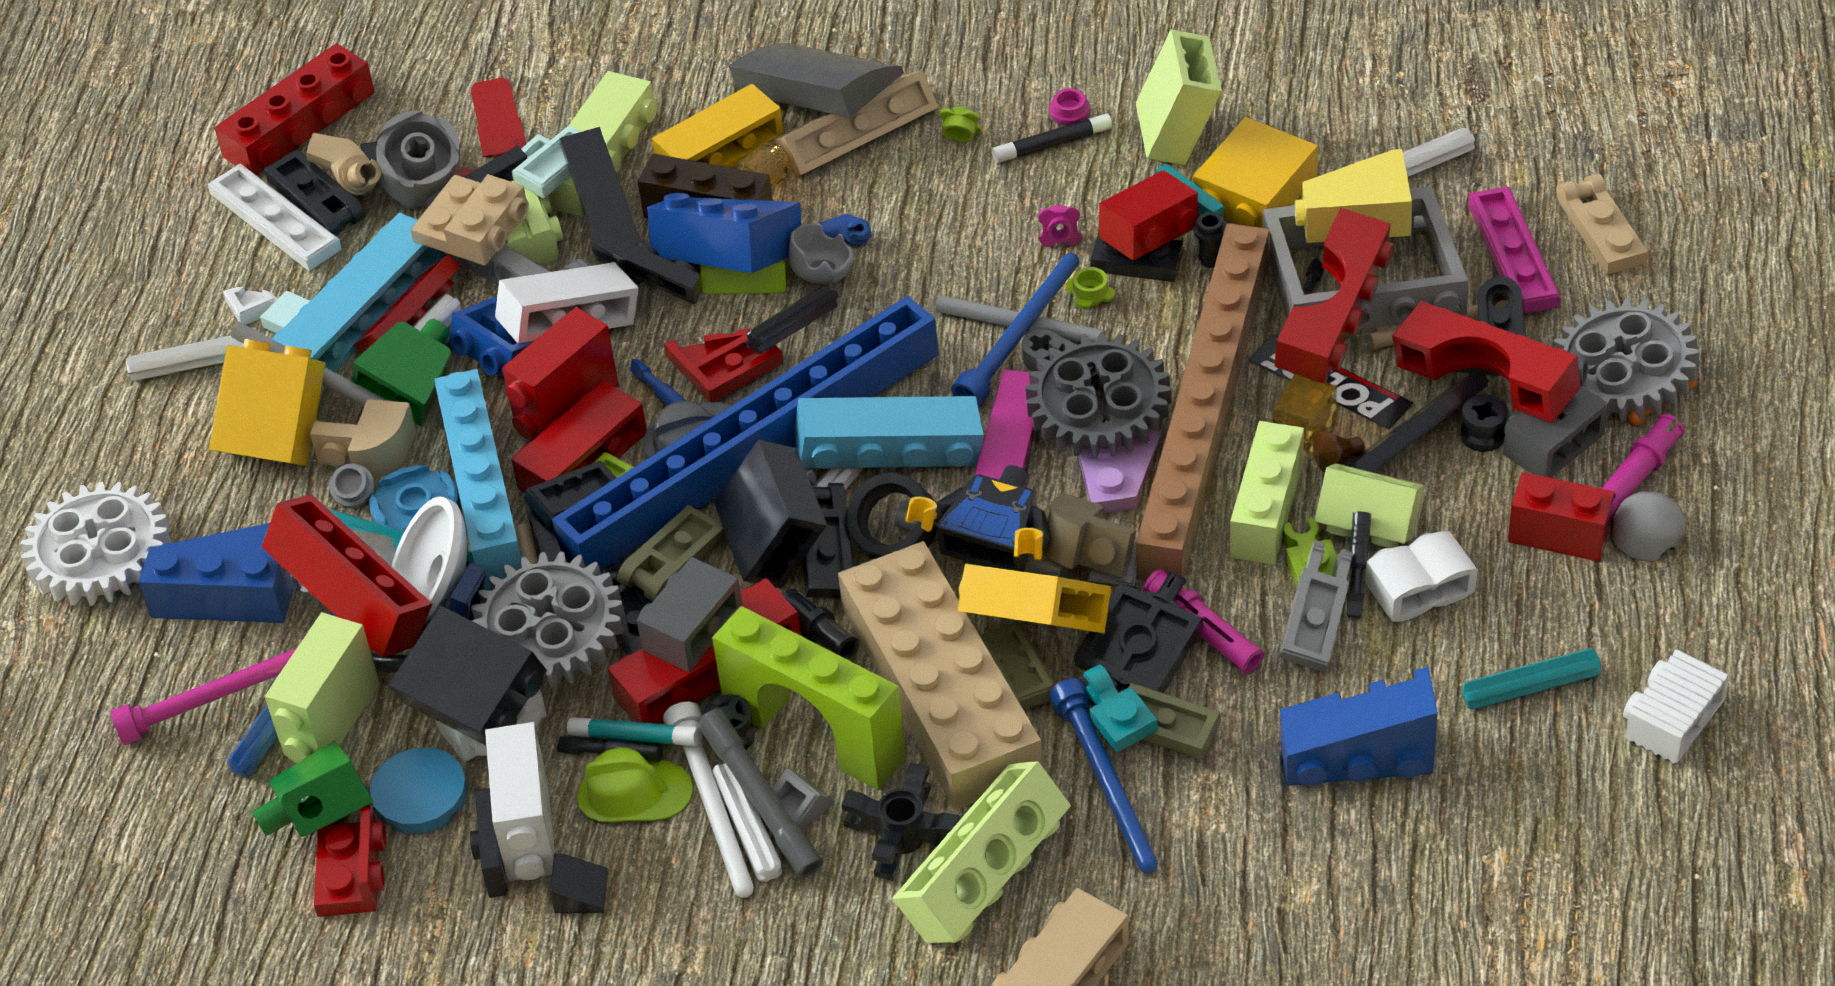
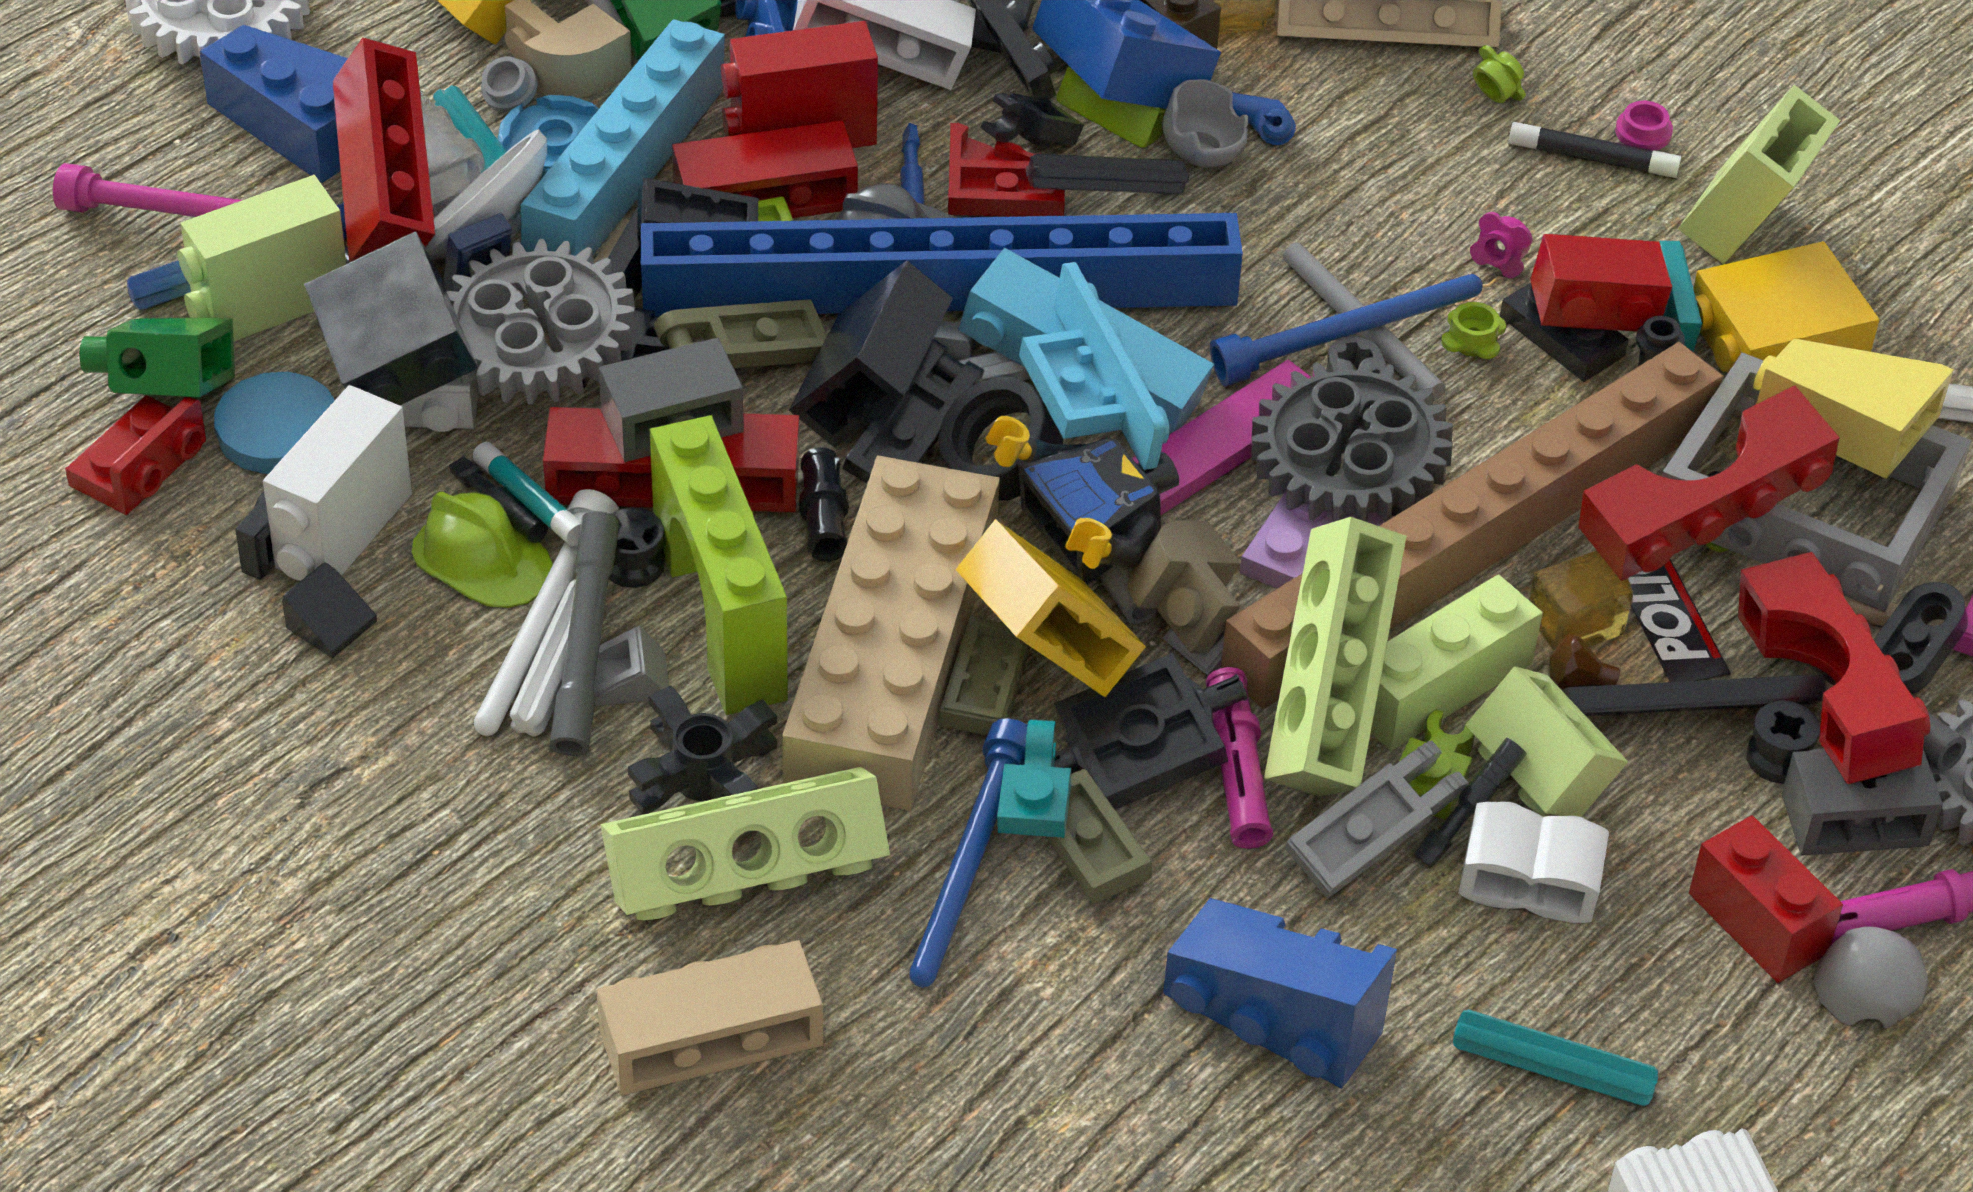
camera: 30 degrees right, 0 degrees up
(712, 313) = (1034, 120): none -> black plate
(930, 442) = (1089, 376): none -> medium azure bracket
(1225, 524) = (1335, 657): none -> yellowish green brick

